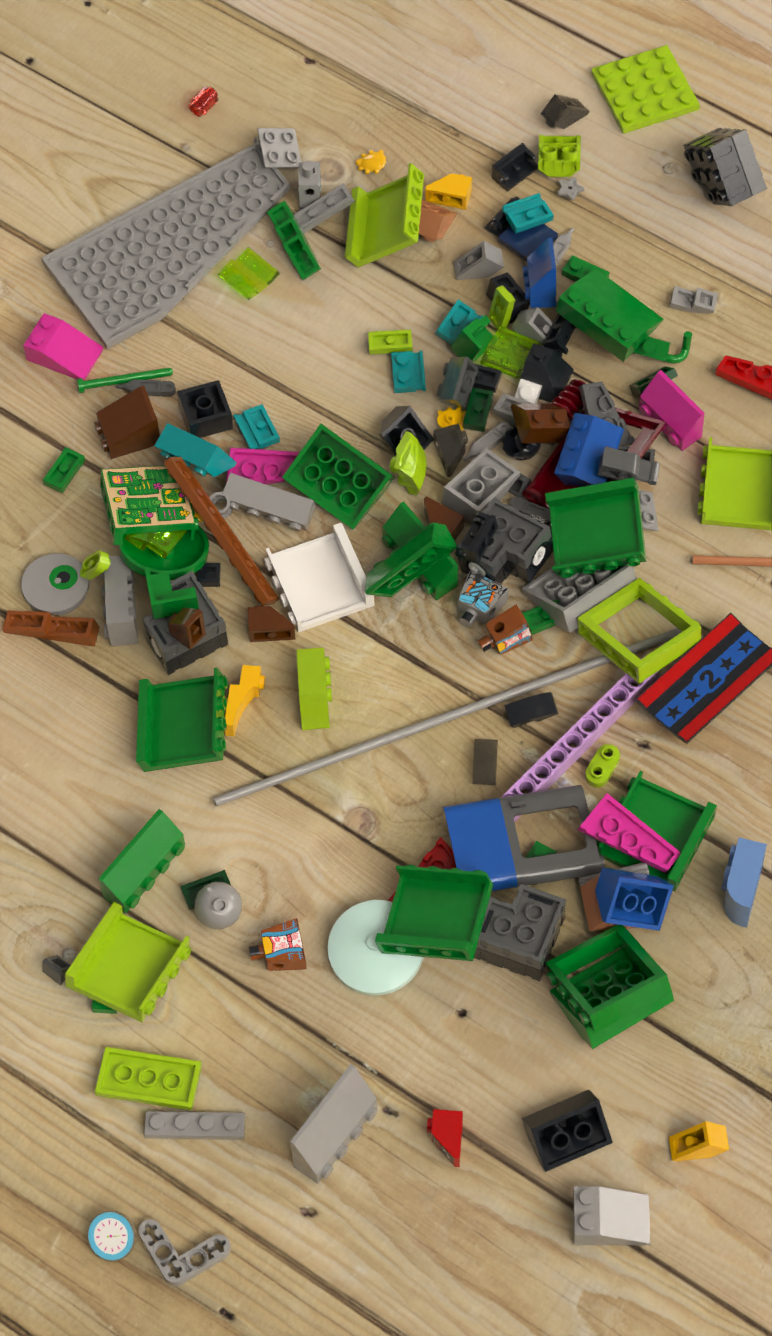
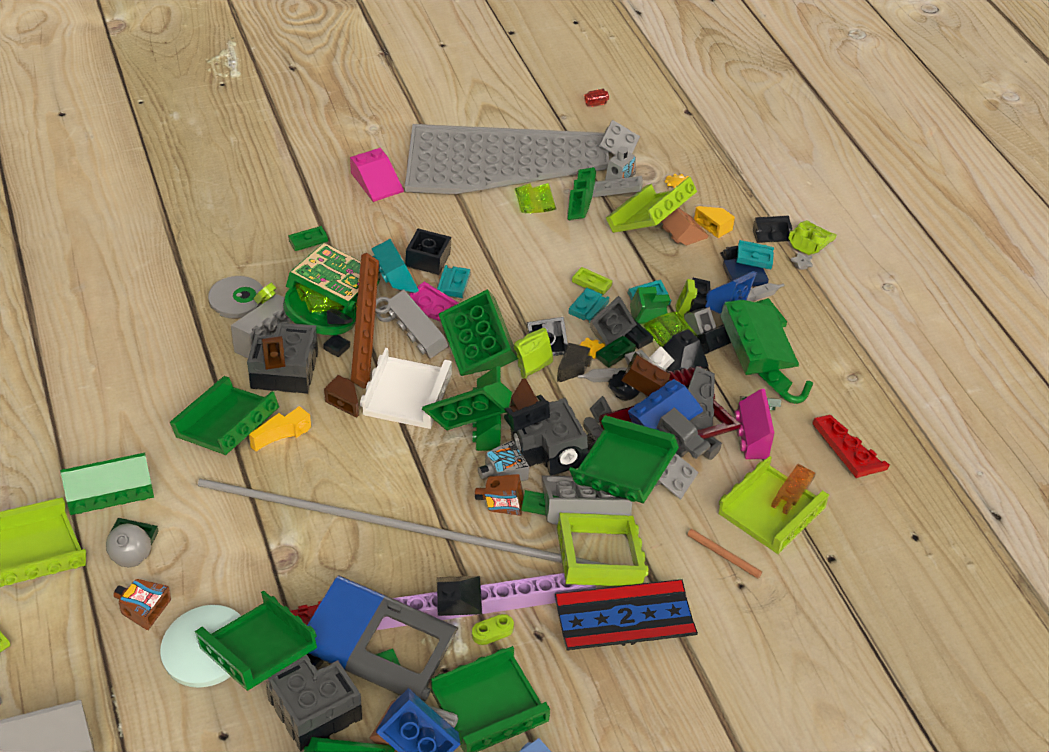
camera: 30 degrees right, 15 degrees down
(44, 626) = (204, 315): dark orange slope -> none
(120, 379) = (368, 201): green bar -> none
(128, 424) = (370, 231): reddish brown slope -> none
(153, 387) = (406, 223): dark grey piece -> none
(164, 600) = (280, 323): green panel -> none
(195, 546) = (336, 317): none -> black slope
(313, 688) = (332, 450): lime wedge -> none
(478, 484) = (580, 390): light grey slope -> none
(479, 262) = (699, 267): light grey slope -> none
(485, 762) = (406, 571): clear smoke slope -> none
(530, 709) = (477, 557): black slope -> none
(557, 755) = (459, 595): none -> black slope
(563, 111) = (836, 215): clear smoke slope -> none
(625, 832) = (458, 680): dark pink wing -> none
(645, 89) = (909, 233): lime plate -> none
(696, 302) = (833, 370): light grey slope -> none
(725, 165) = (926, 296): piece -> none
(751, 455) = (794, 488): none -> clear orange hinge

